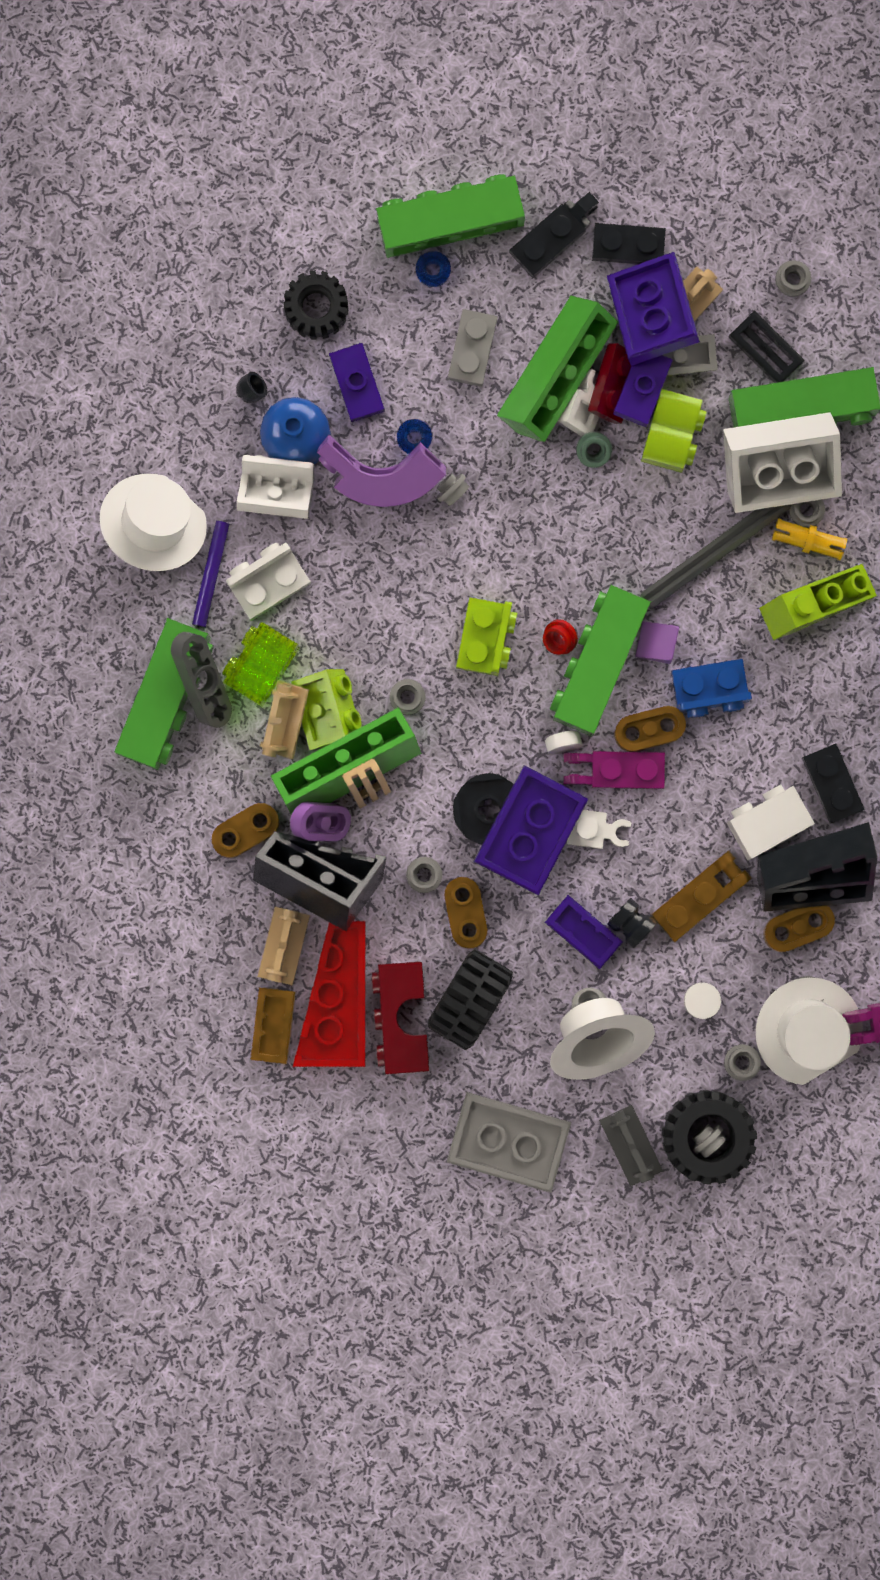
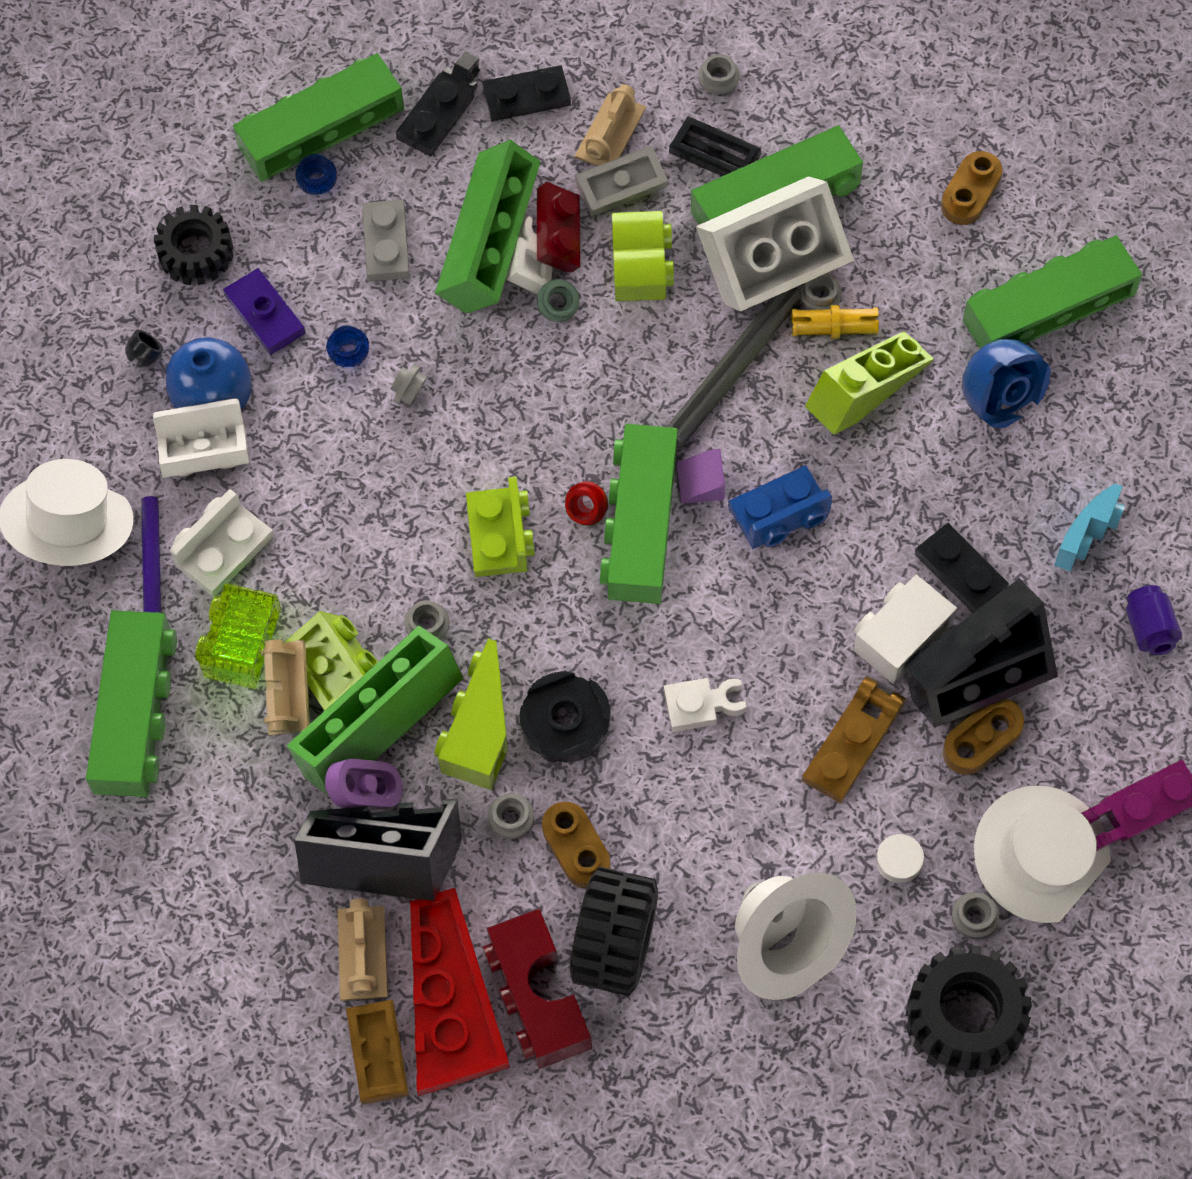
camera: 20 degrees left, 20 degrees down
(189, 671) = (154, 662): dark grey beam -> none
(245, 830) = (274, 830): pearl gold plate -> none
(370, 789) = (417, 736): tan tile -> none
(382, 486) = (326, 403): medium lavender arch -> none
(420, 803) = (478, 734): none -> lime slope
(508, 1142) = (721, 1104): light grey tile -> none
(530, 830) = (623, 720): dark purple tile -> none
(563, 742) = (629, 614): white tile -> none
(583, 932) = (727, 821): dark purple plate -> none
(619, 770) = (703, 629): magenta hinge -> none
(631, 1146) = (875, 1058): dark grey hinge -> none
(633, 924) = (783, 791): black wheel -> none
(642, 390) = (590, 216): dark purple plate -> none
(649, 728) = (722, 570): pearl gold plate -> none
(652, 308) = (574, 136): dark purple tile -> none
(708, 1140) = (969, 1011): light grey plate -> none

